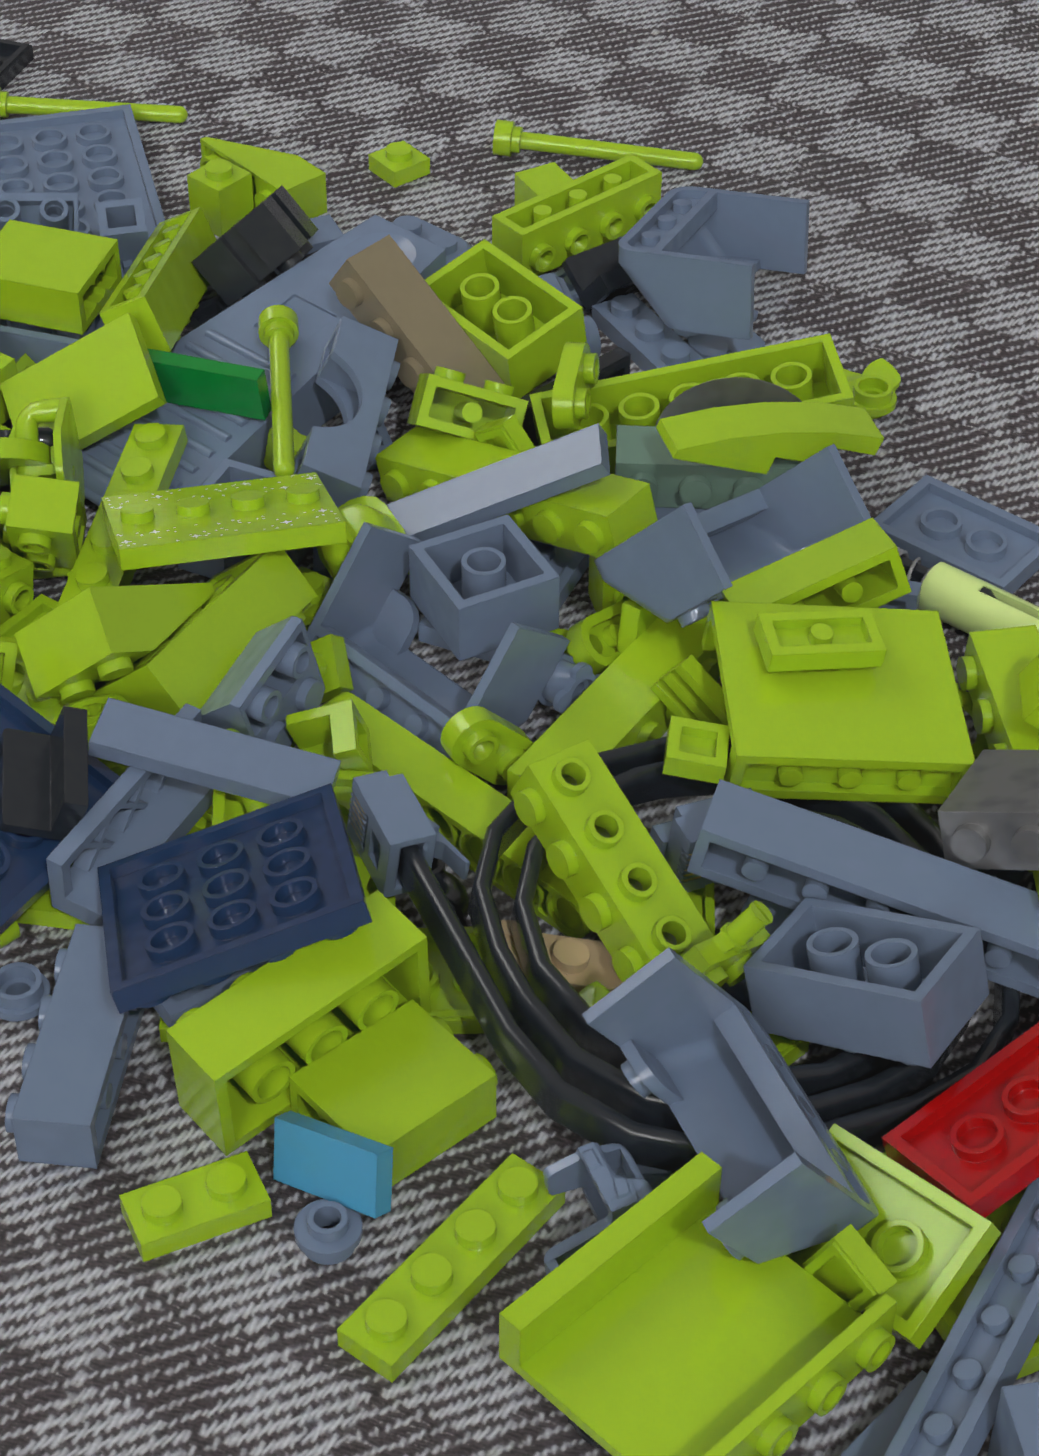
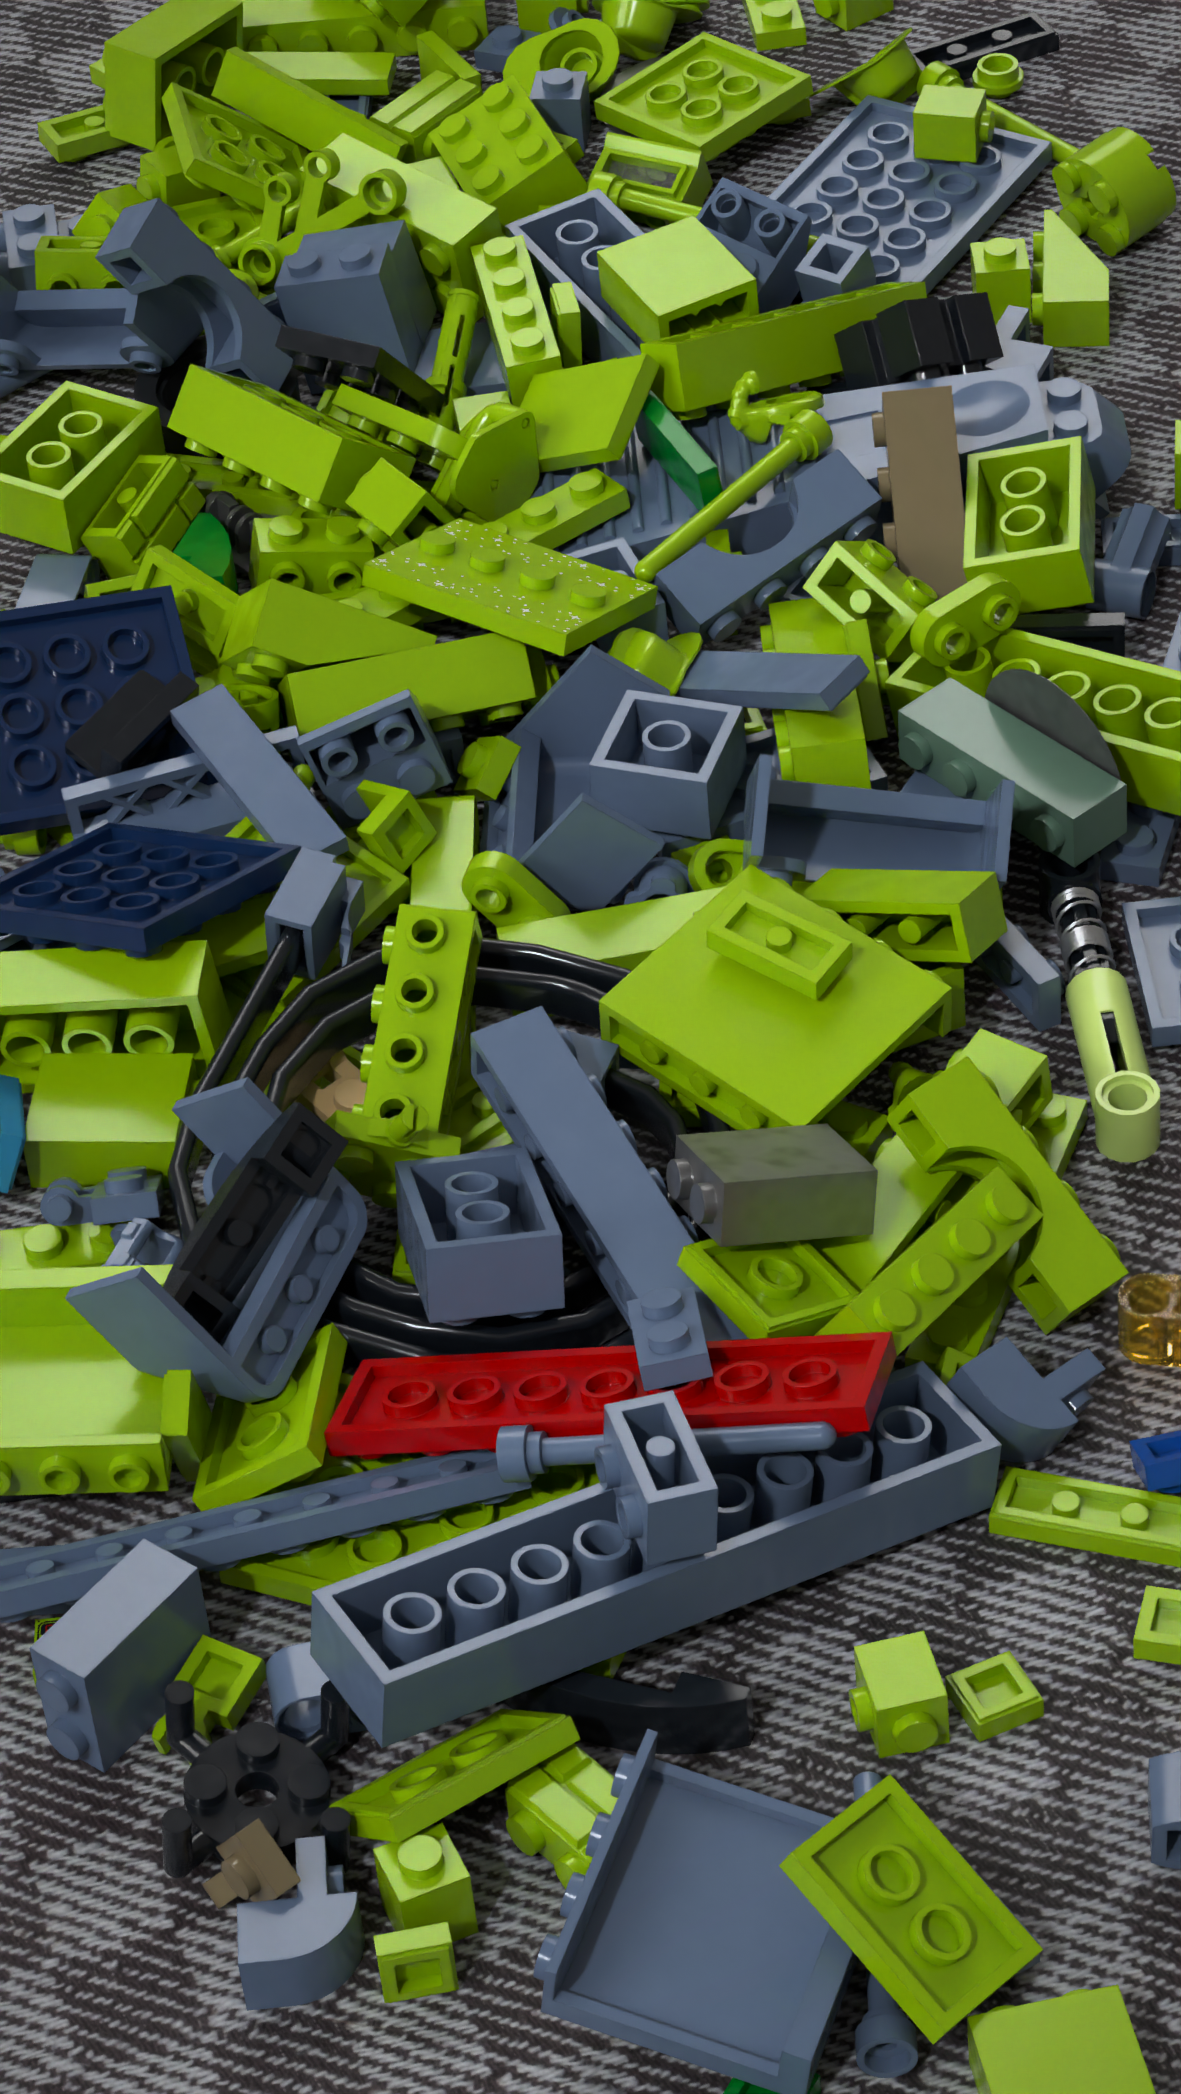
camera: 50 degrees right, 0 degrees up
(24, 82) = (998, 75): none -> lime plate
(61, 112) = (951, 123): none -> lime brick
(227, 104) = (1114, 190): none -> lime brick
(228, 333) = (757, 418): none -> lime piece
(495, 1156) = (117, 1199): none -> sand blue plate
(696, 749) = (593, 978): lime plate -> none
(720, 1009) = (248, 1213): none -> black slope
(755, 433) = (1051, 755): lime slope -> none

